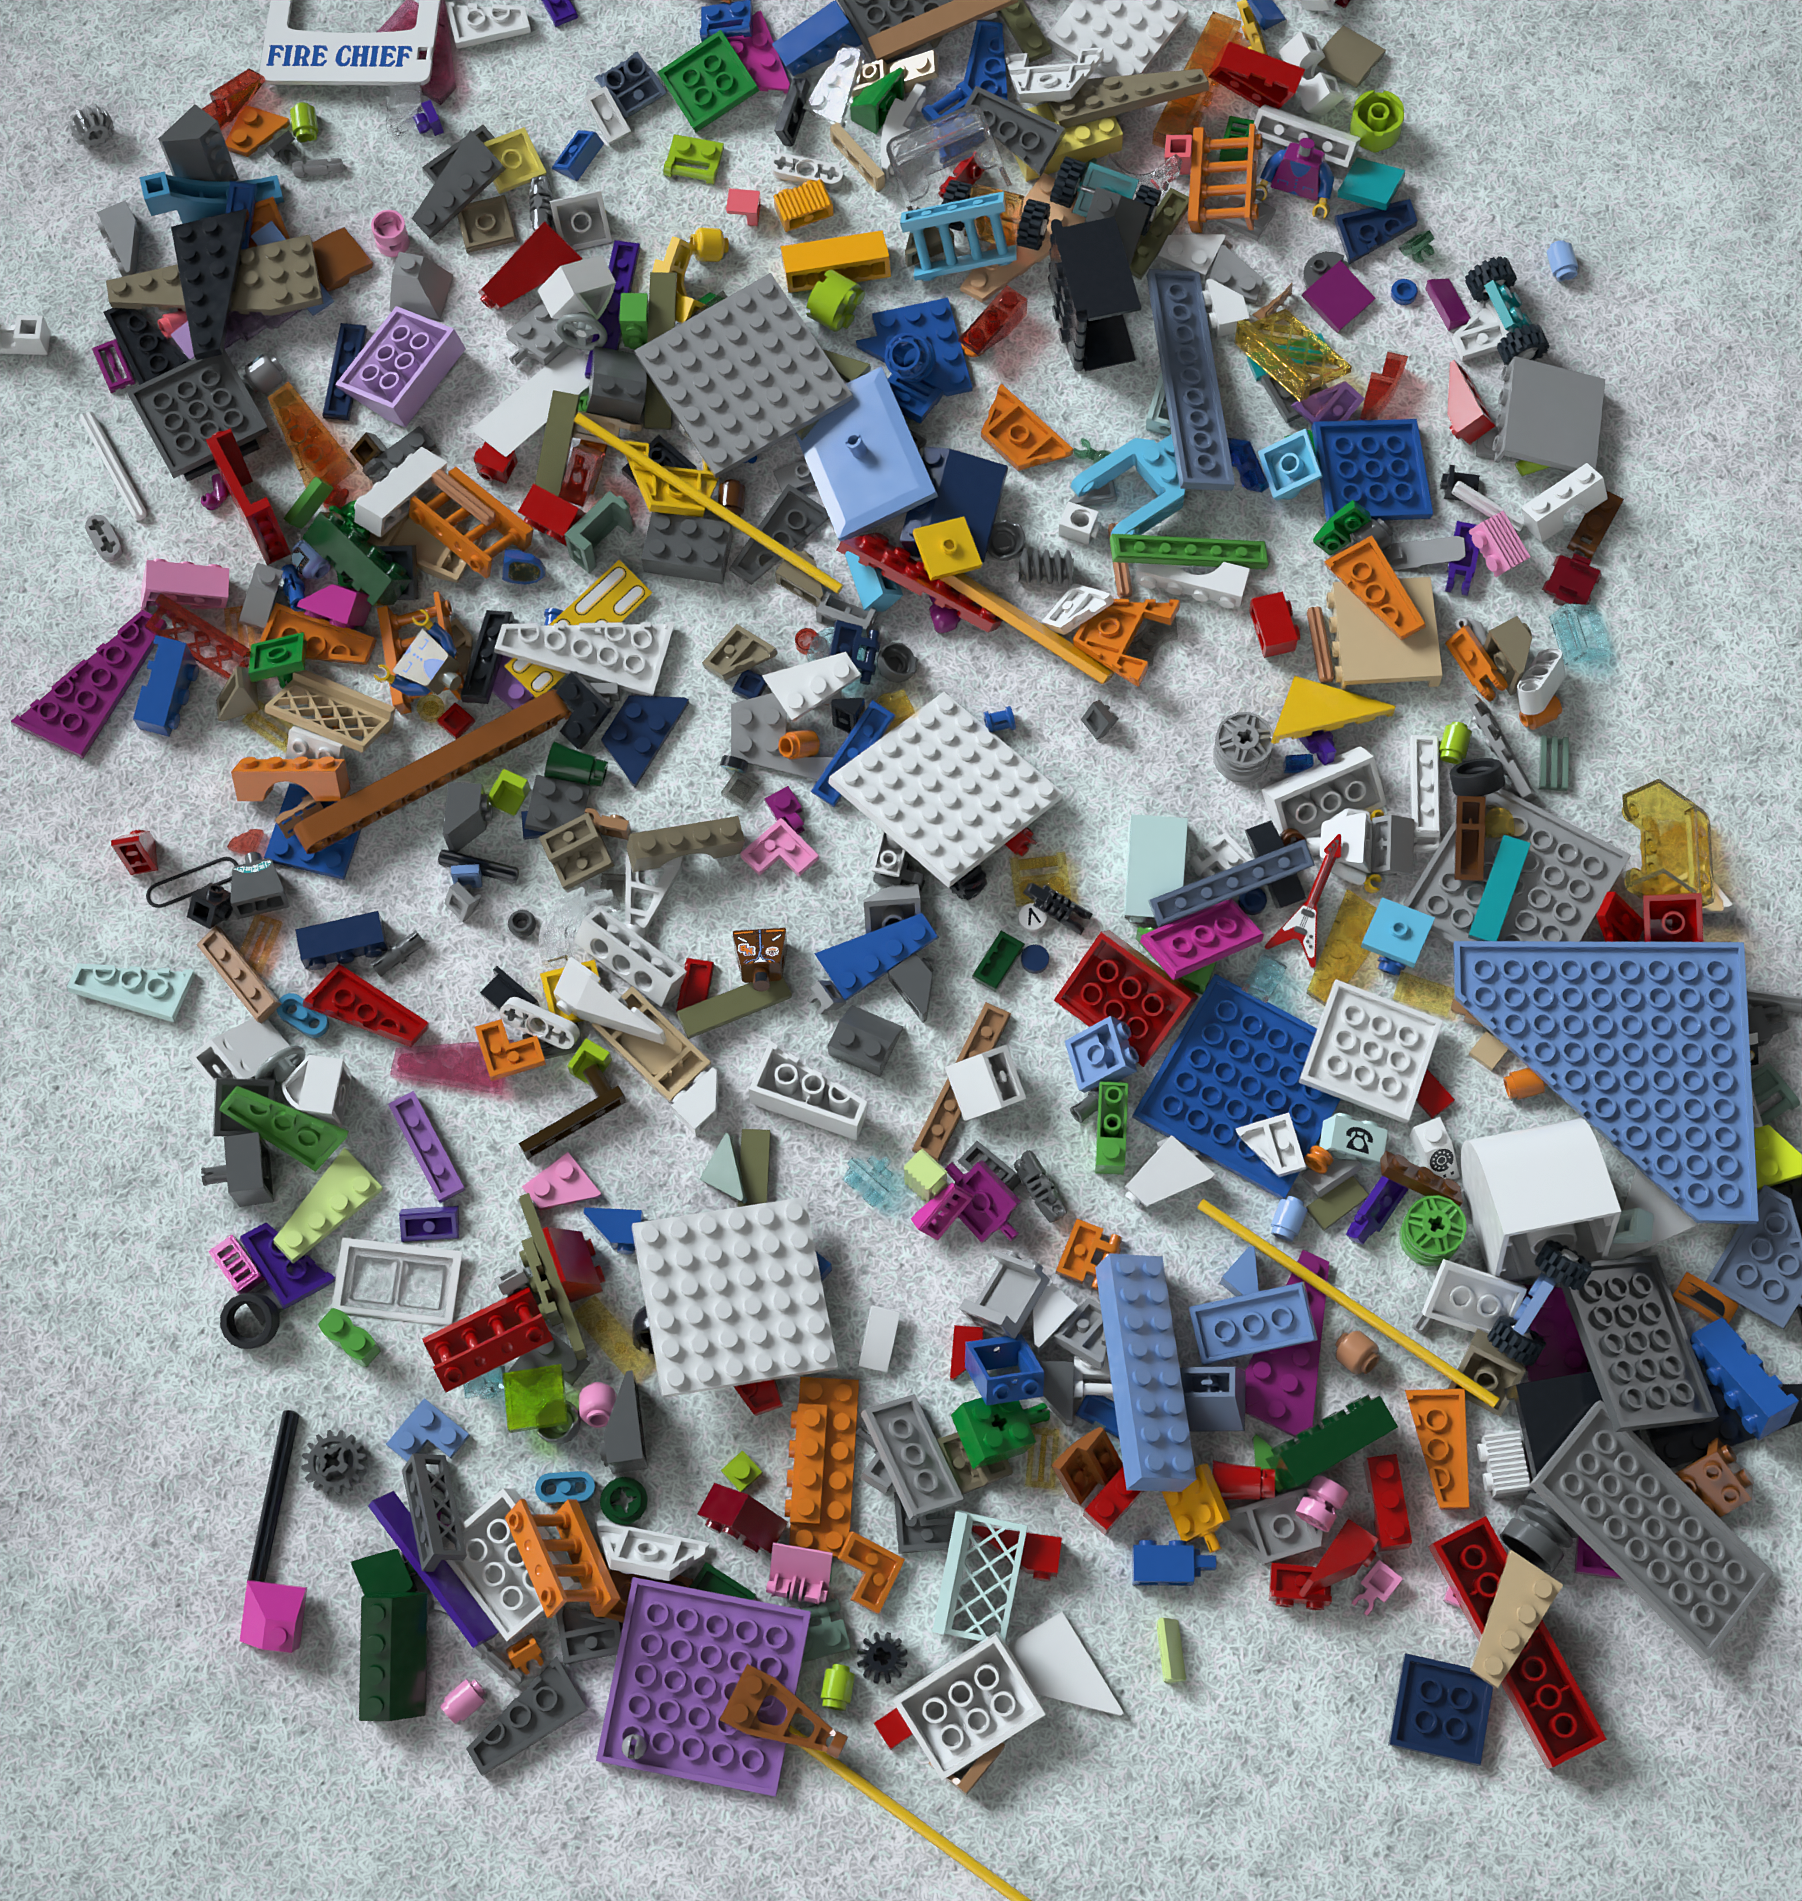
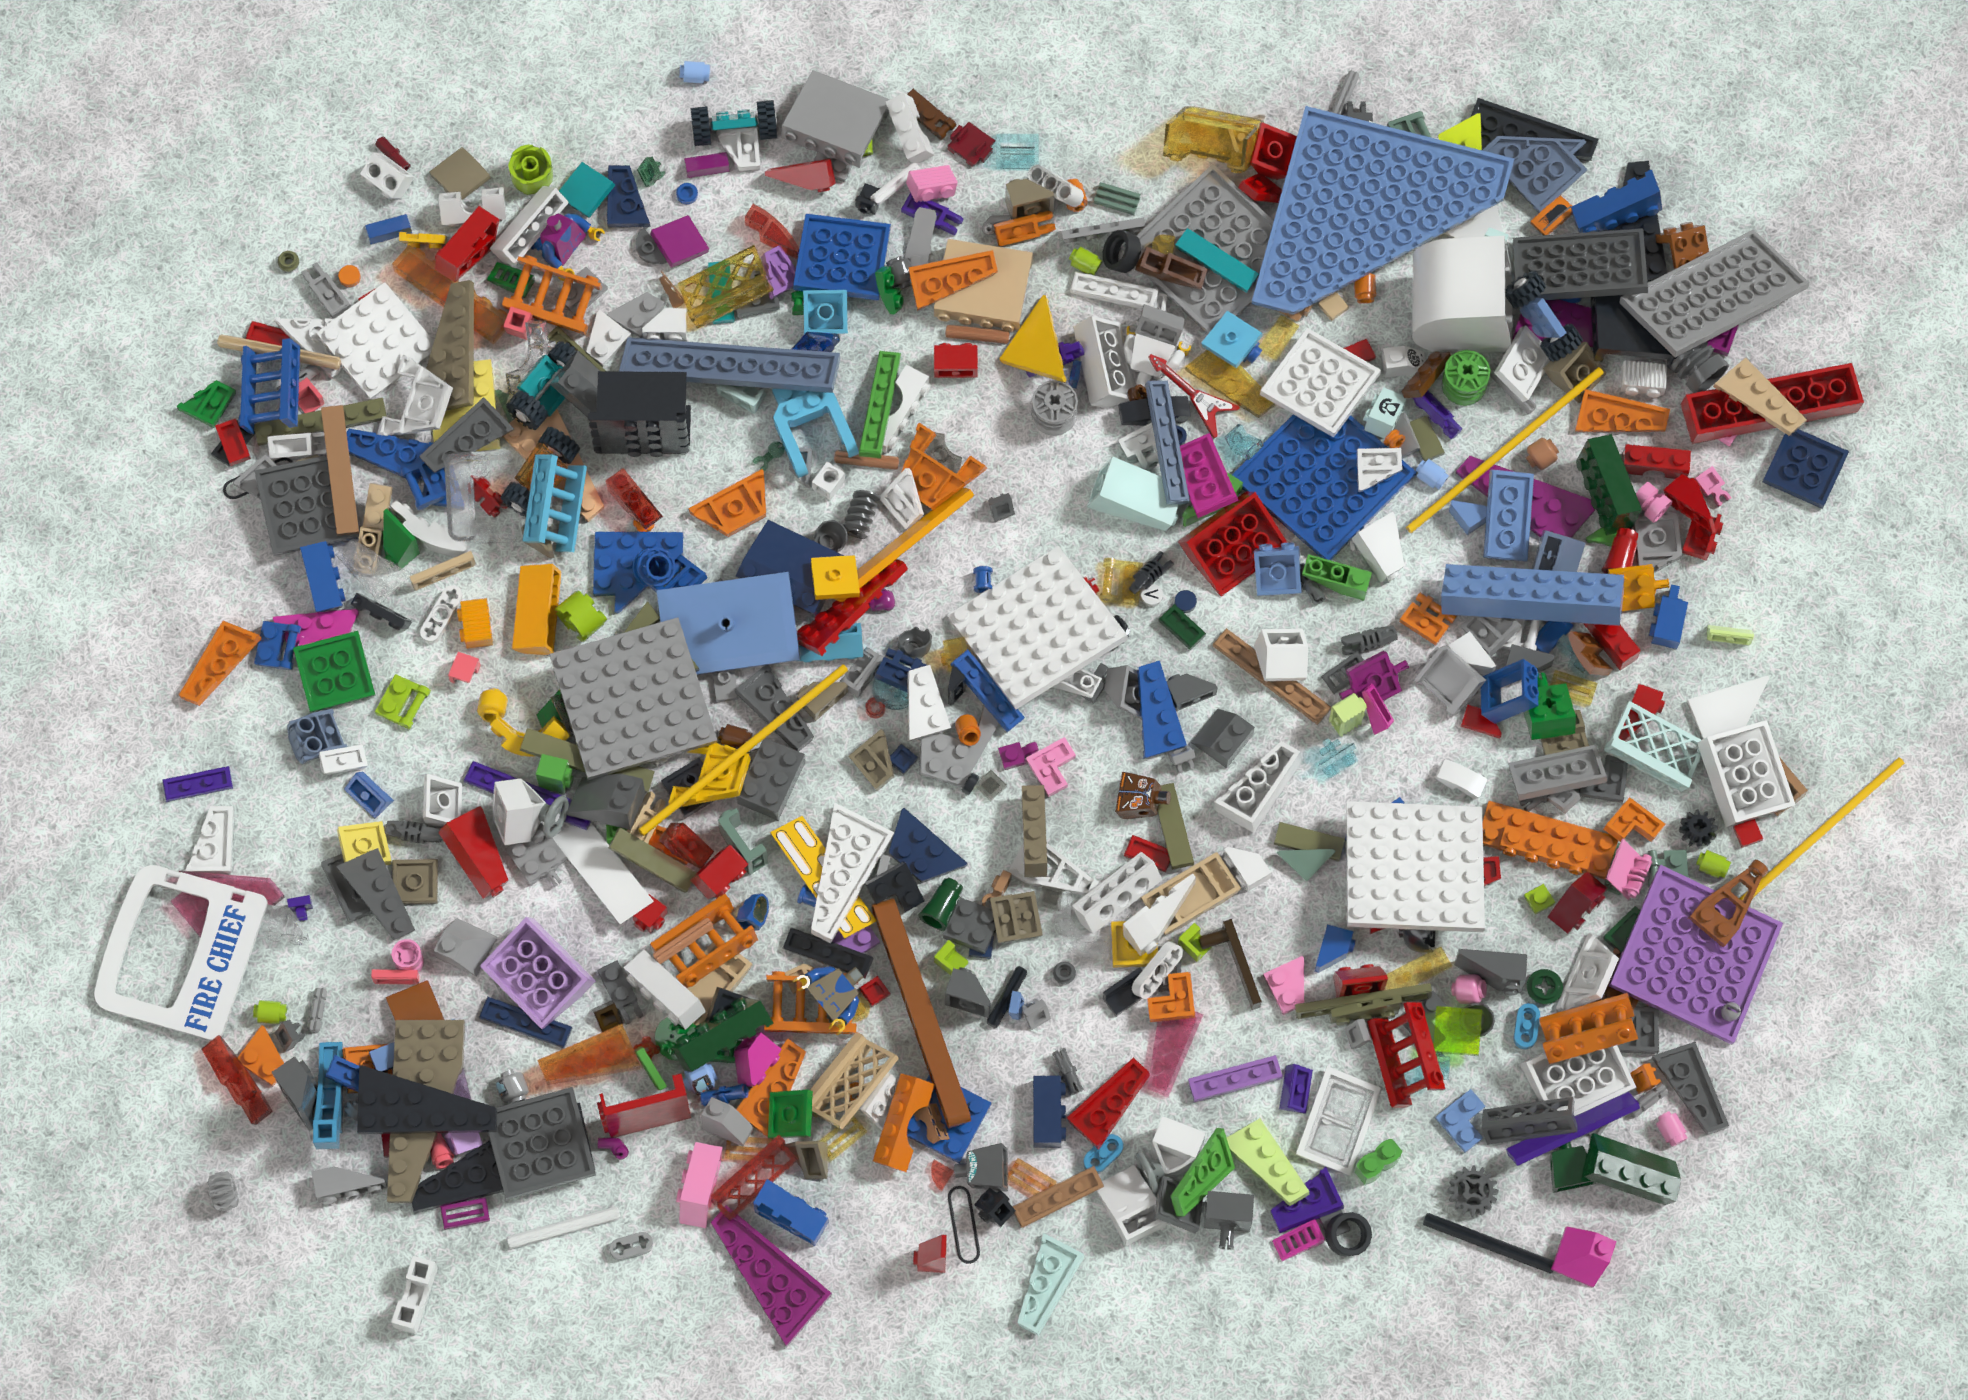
camera: 80 degrees left, 0 degrees up
(366, 219) = (395, 976): none -> coral tile

